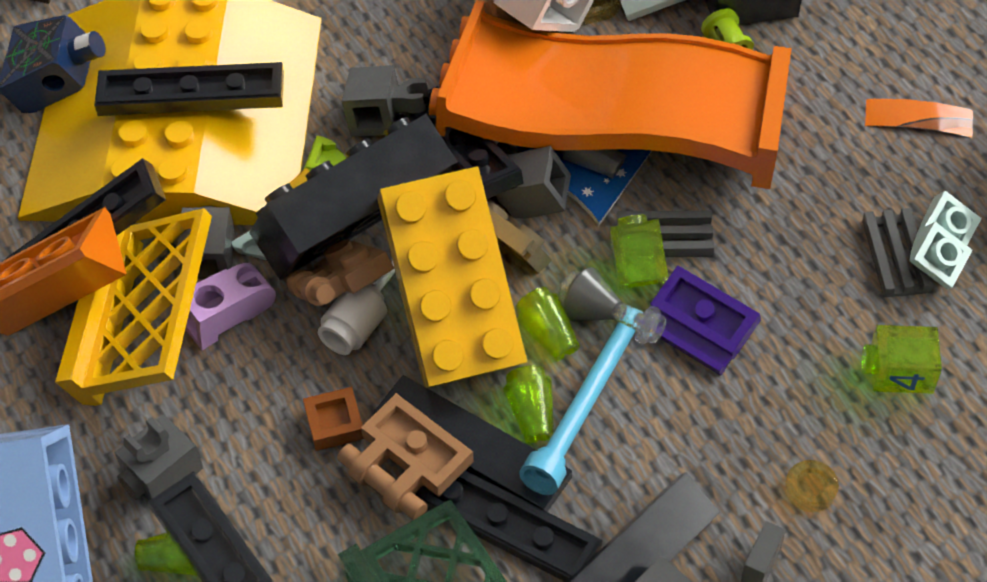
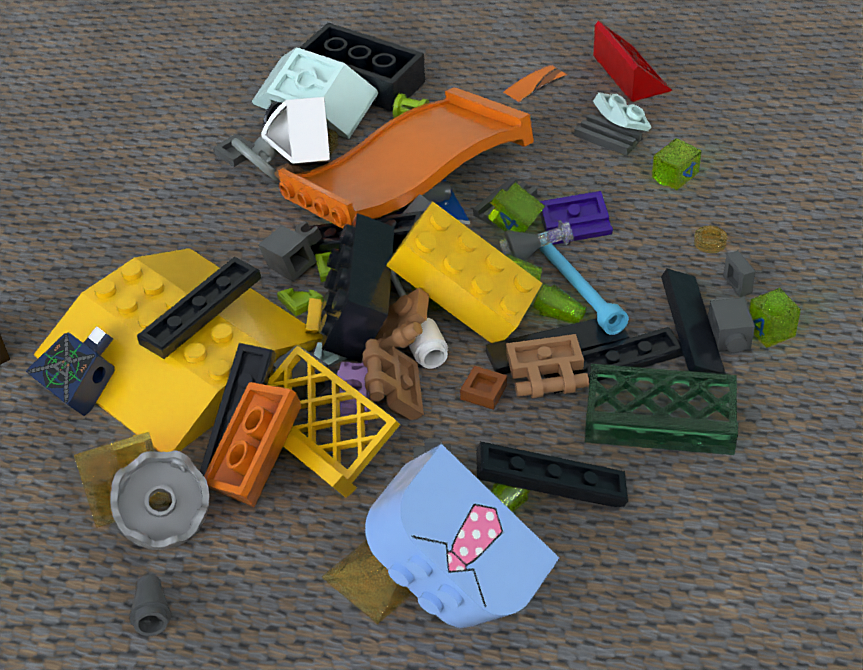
camera: 50 degrees left, 10 degrees down
(269, 339) = (398, 381): none -> medium nougat plate

